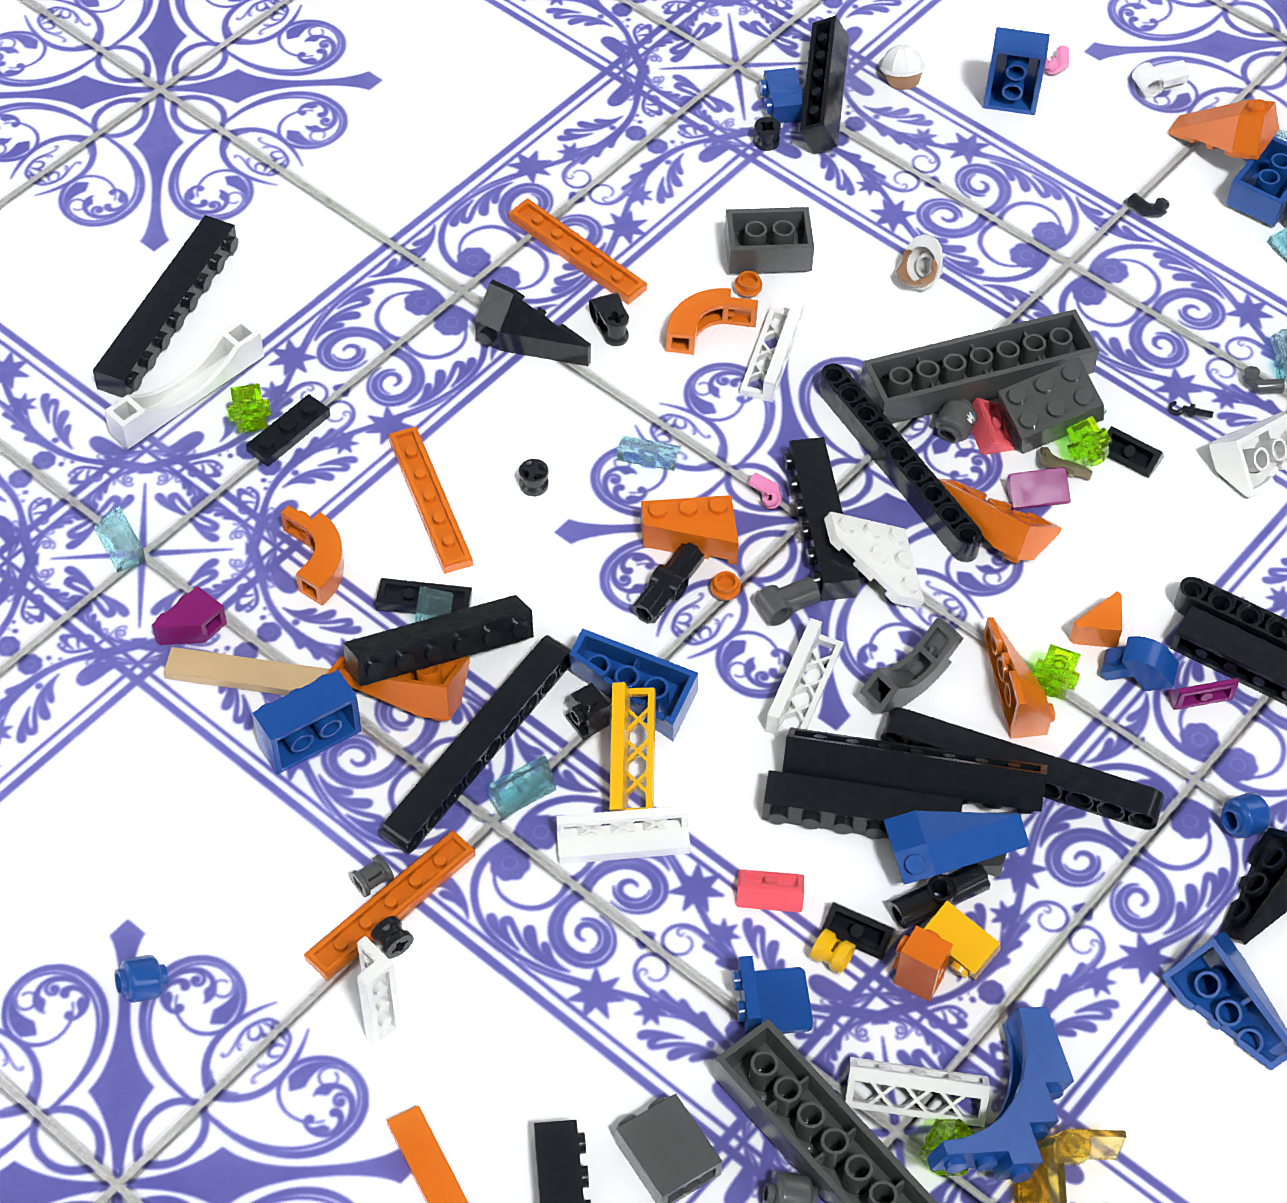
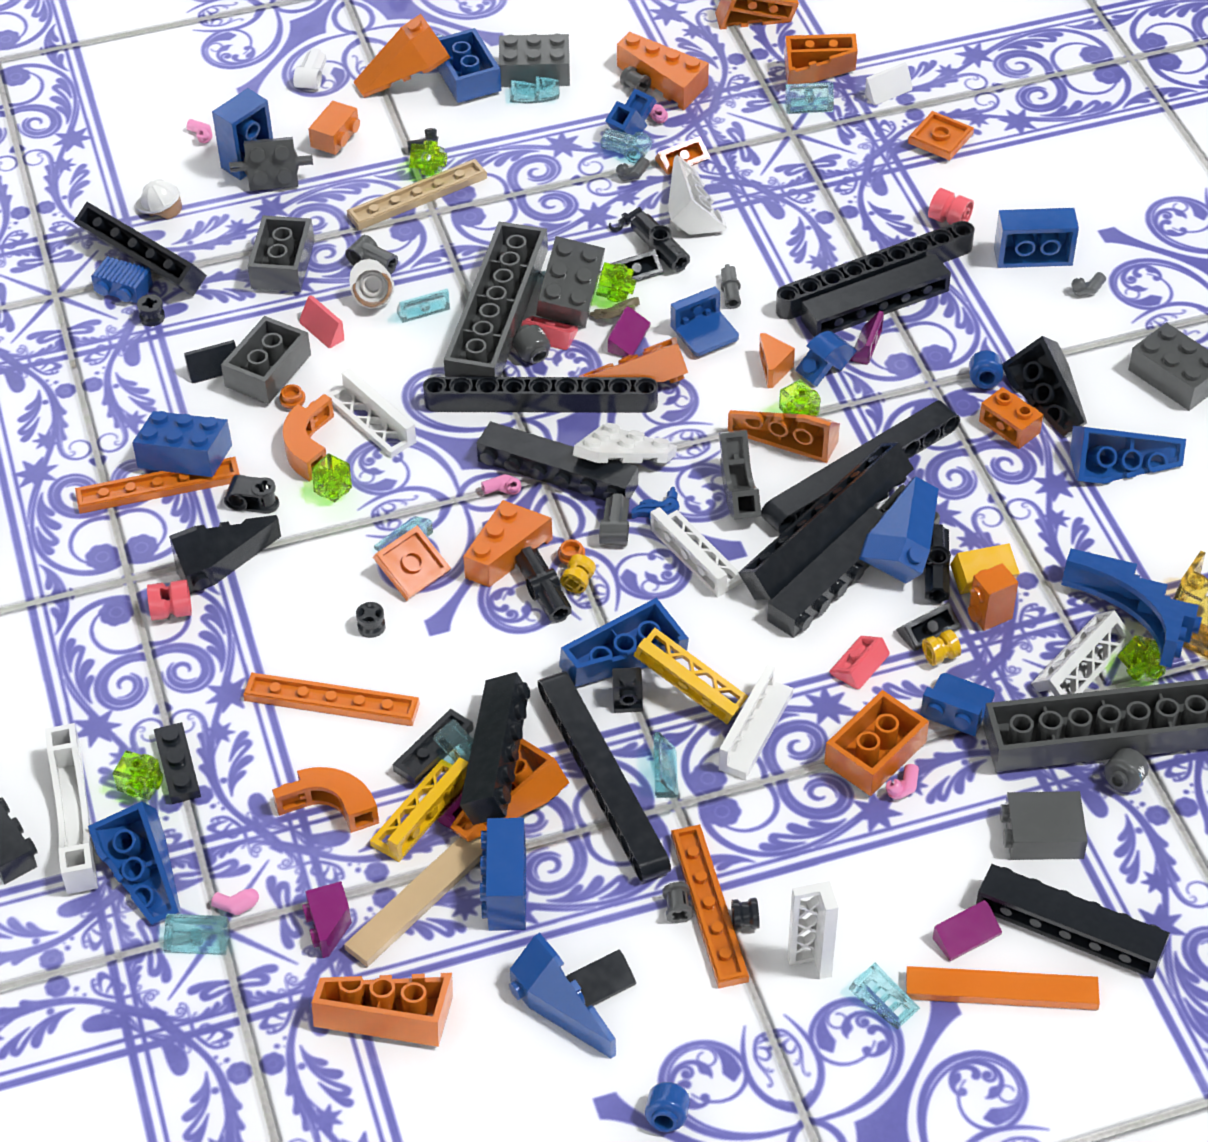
camera: 55 degrees left, 5 degrees down
(122, 717) = (385, 1007): none -> orange wedge
(169, 550) = (237, 903): none -> bright pink arm
(176, 449) = (139, 857): none -> blue wedge
(210, 821) = (545, 989): none -> blue wedge
(250, 858) = (603, 978): none -> black slope
(341, 625) = (422, 814): none -> yellow fence
(380, 1075) = (883, 981): none -> clear light blue slope
(448, 326) = (169, 600): none -> coral wheel
(495, 1140) = (966, 930): none -> magenta slope
(617, 471) = (411, 563): none -> plate
(623, 237) = (182, 443): none -> blue brick
(637, 1003) = (904, 787): none -> bright pink arm
(663, 948) = (876, 742): none -> orange brick
(668, 361) = (331, 478): none -> clear neon green brick
(700, 602) = (578, 572): none -> yellow wheel
(734, 197) = (207, 361): none -> black slope
(834, 626) = (645, 507): none -> blue piece
(852, 257) = (322, 323): none -> coral slope
(904, 180) = (281, 253): none -> dark grey brick
(937, 317) = (423, 305): none -> clear light blue slope
(965, 245) = (367, 248): none -> dark grey piece
(1006, 112) = (271, 163): none -> dark grey plate
(1078, 238) = (416, 194): none -> tan tile
(1098, 131) = (334, 127): none -> orange brick
(1099, 540) = (701, 323): none -> blue bracket
(1122, 217) = (420, 154): none -> clear neon green brick
(1173, 539) = (730, 287): none -> dark grey axle
(1179, 452) = (659, 238): none -> black piece
(1198, 871) = (1011, 417): none -> orange brick

